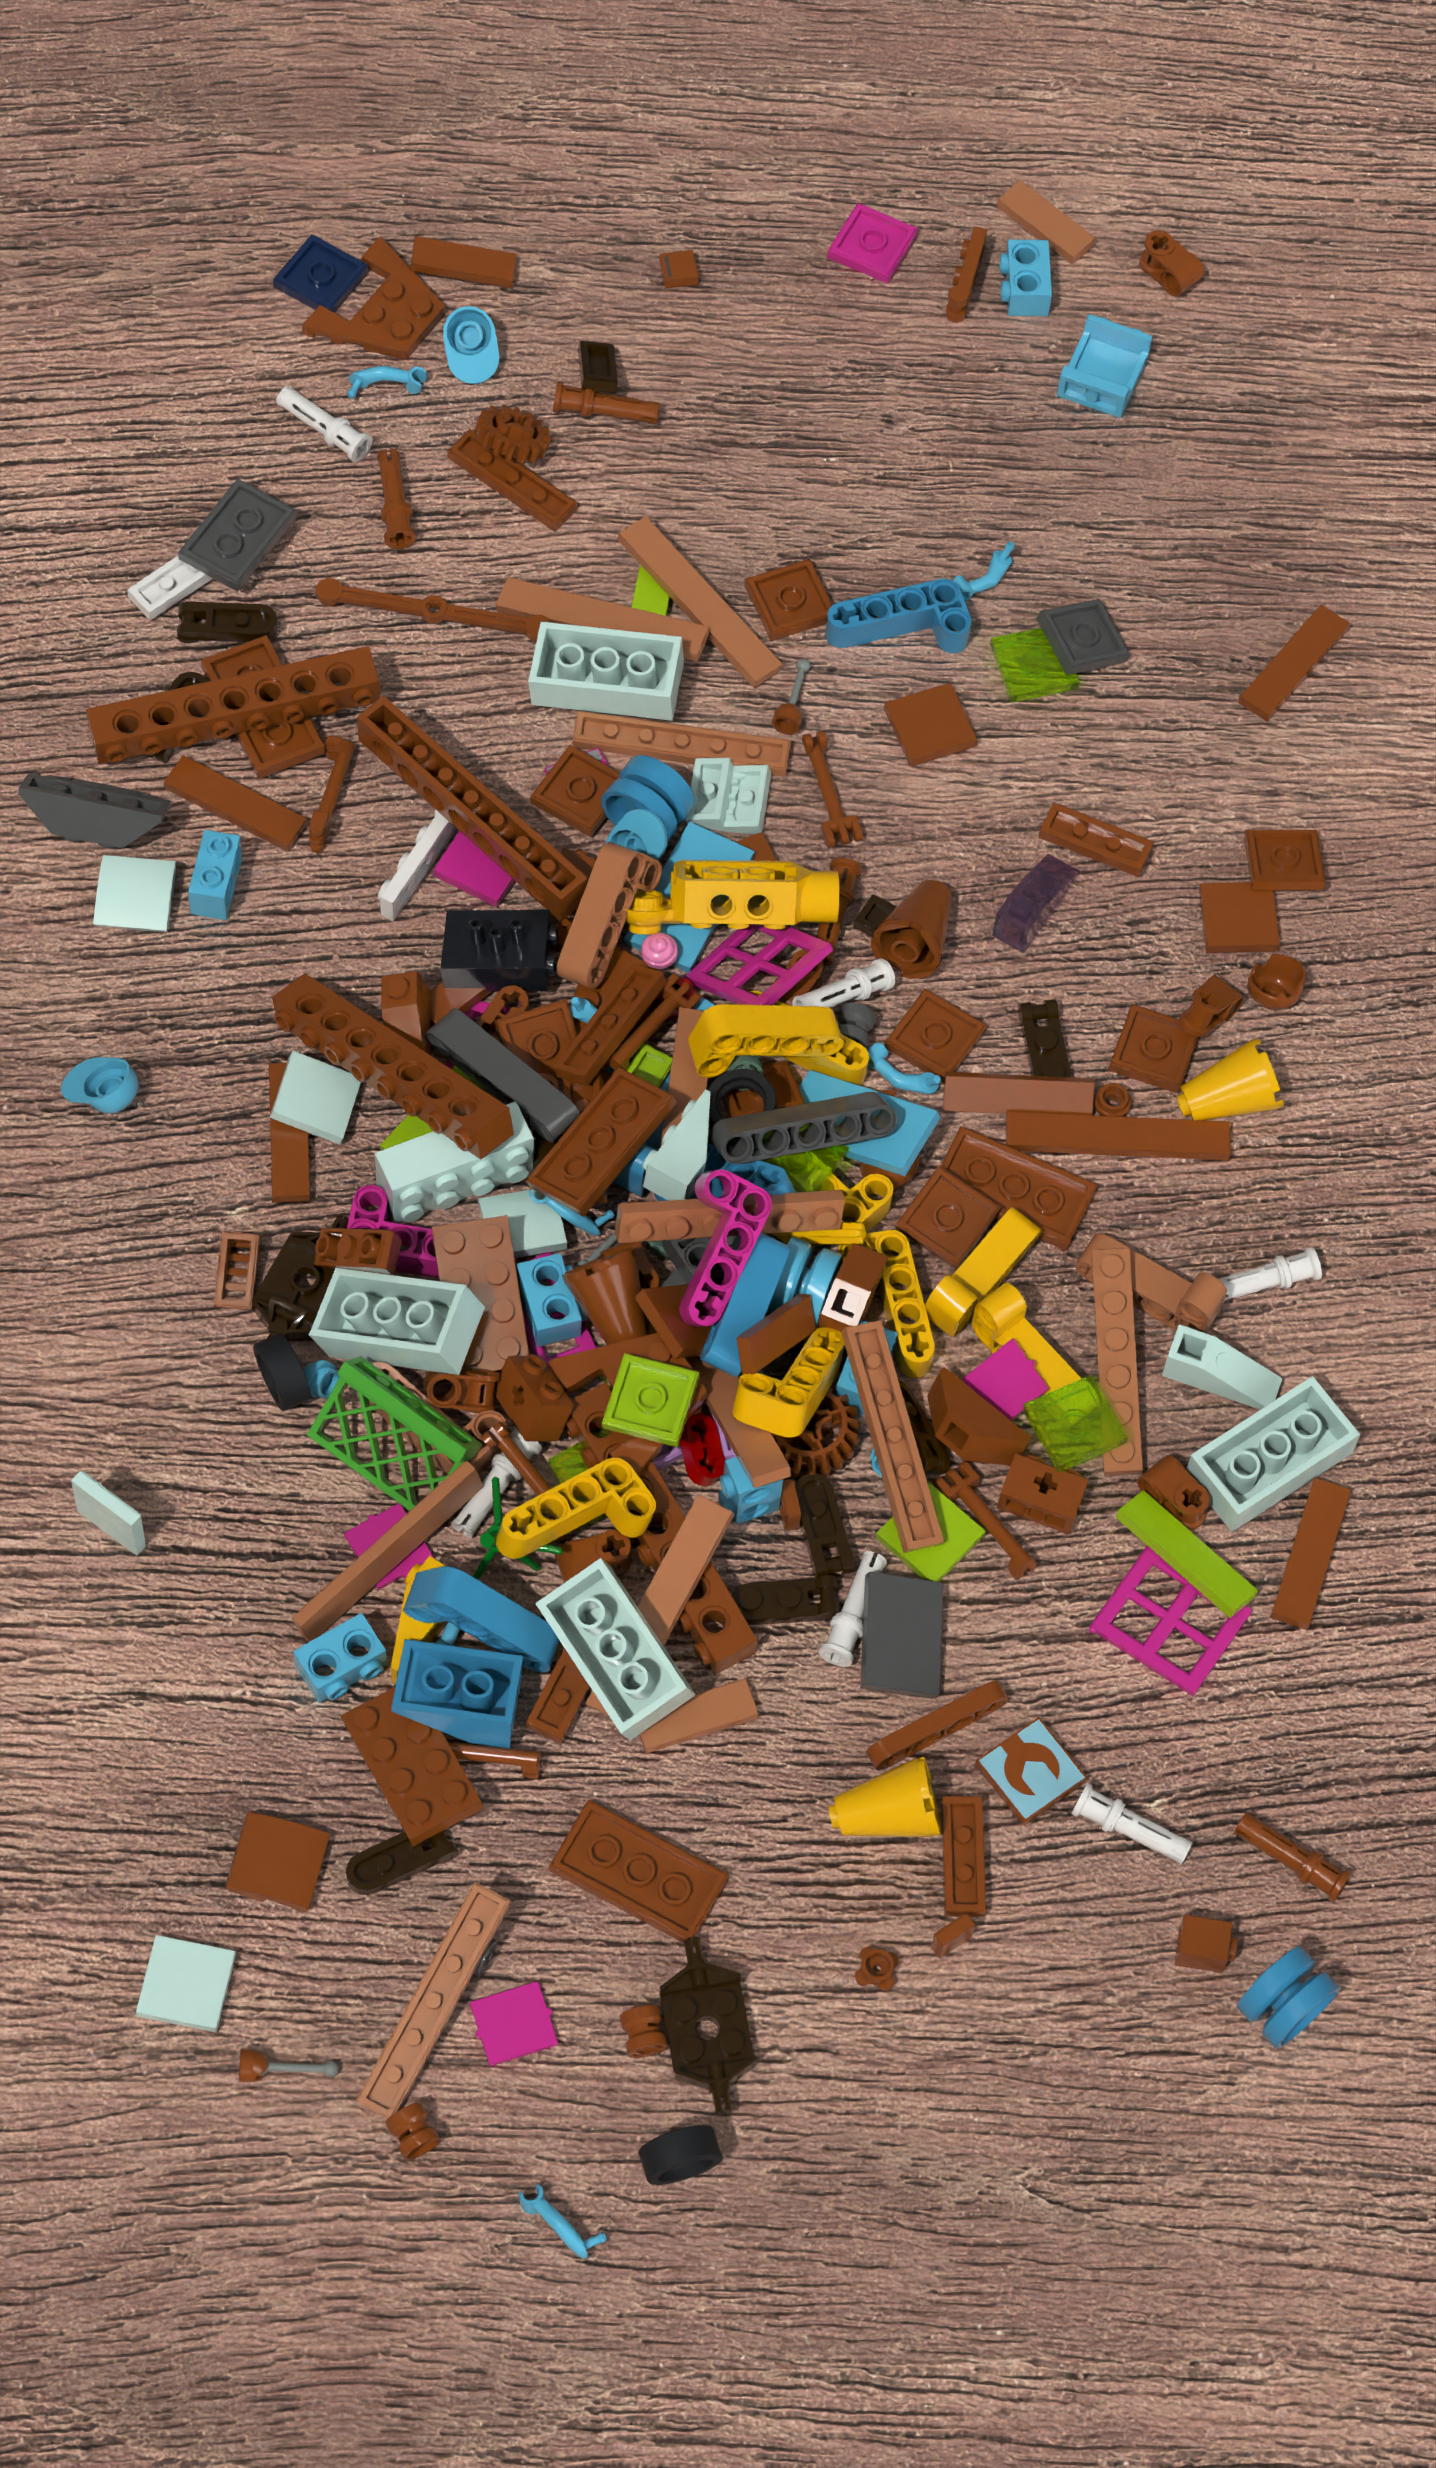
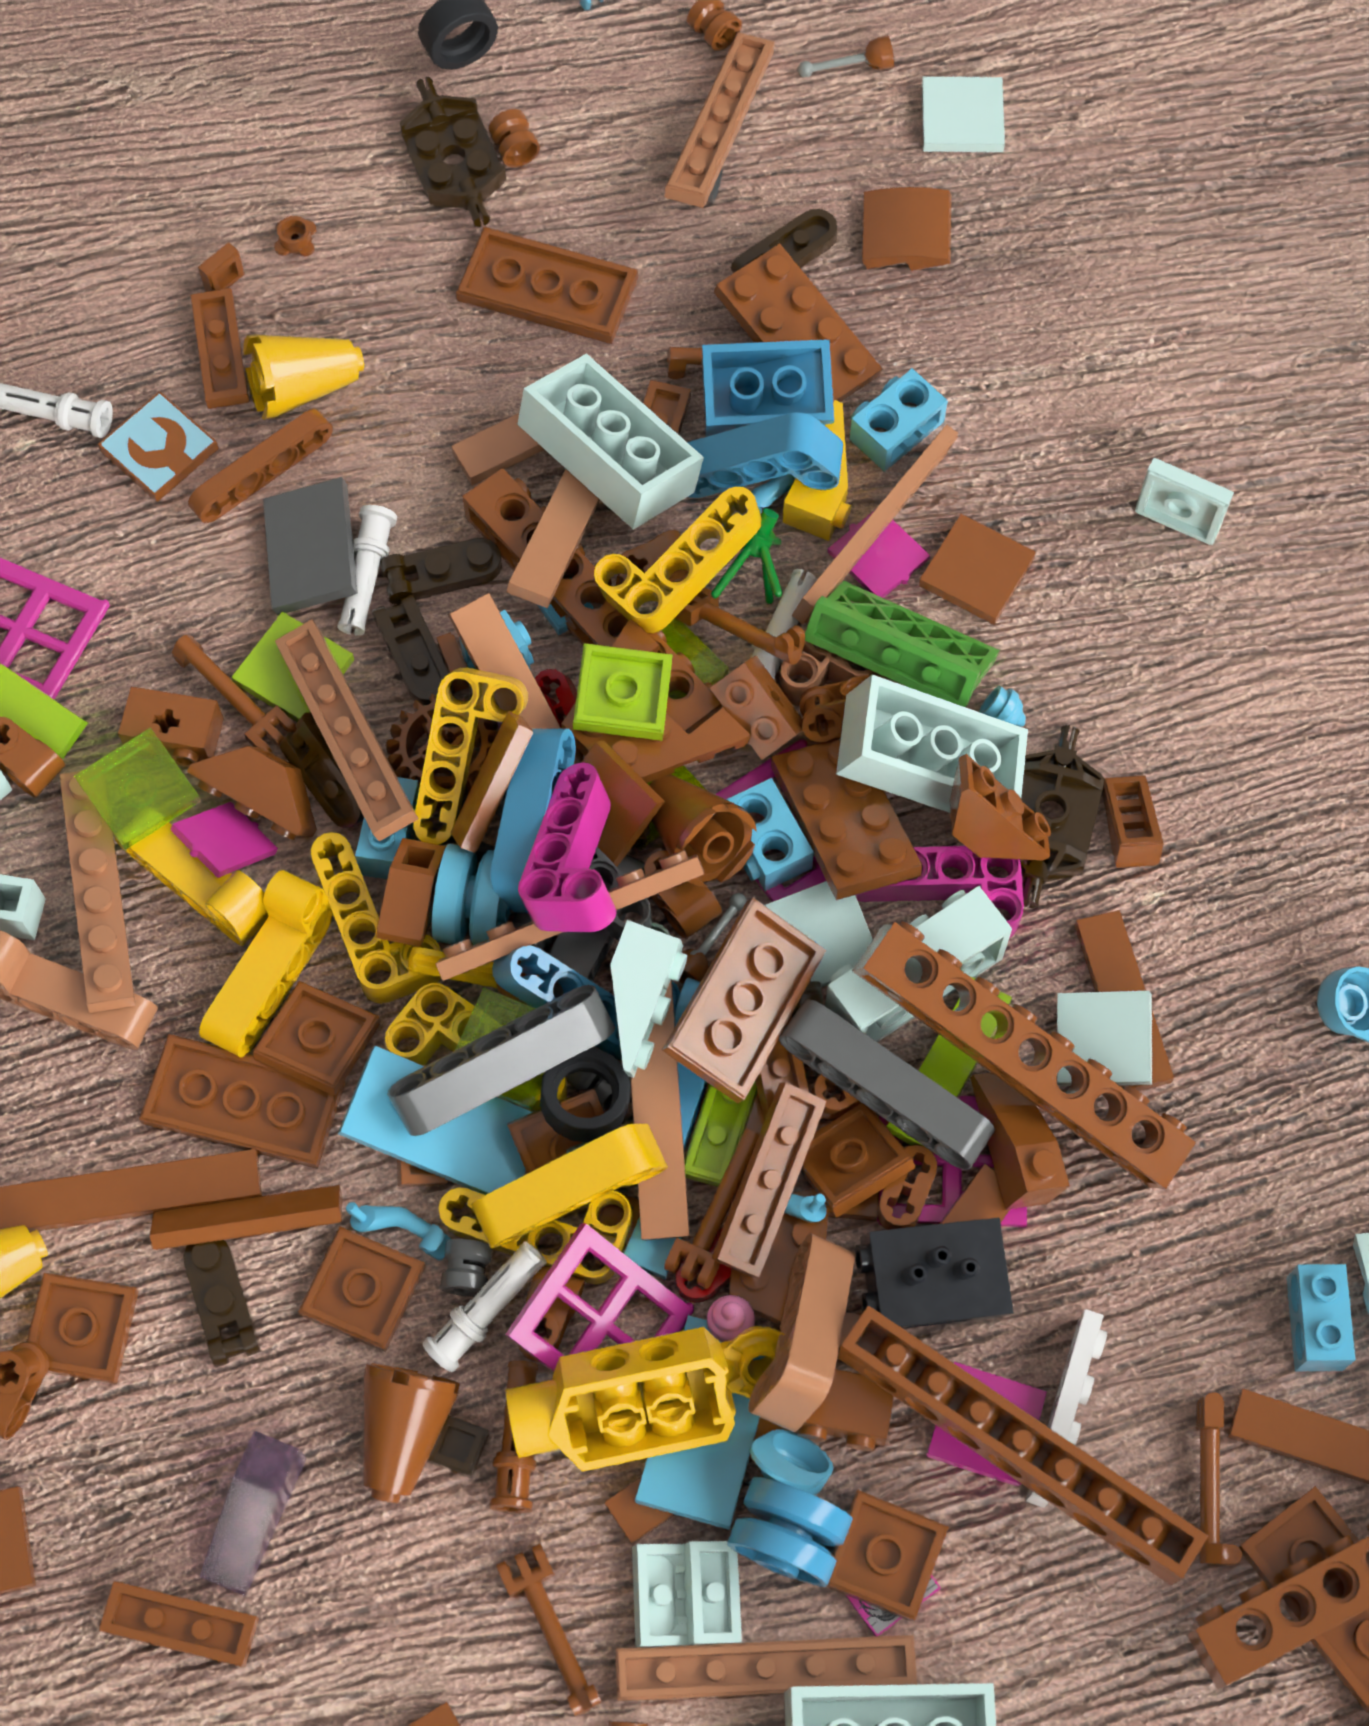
camera: 175 degrees right, 5 degrees up
(282, 1371) = (1046, 689): black tyre -> none
(305, 1511) = (977, 569): none -> dark orange tile
(513, 2023) = (641, 137): dark pink piece -> none
(1116, 1093) = (122, 1226): dark orange plate -> none

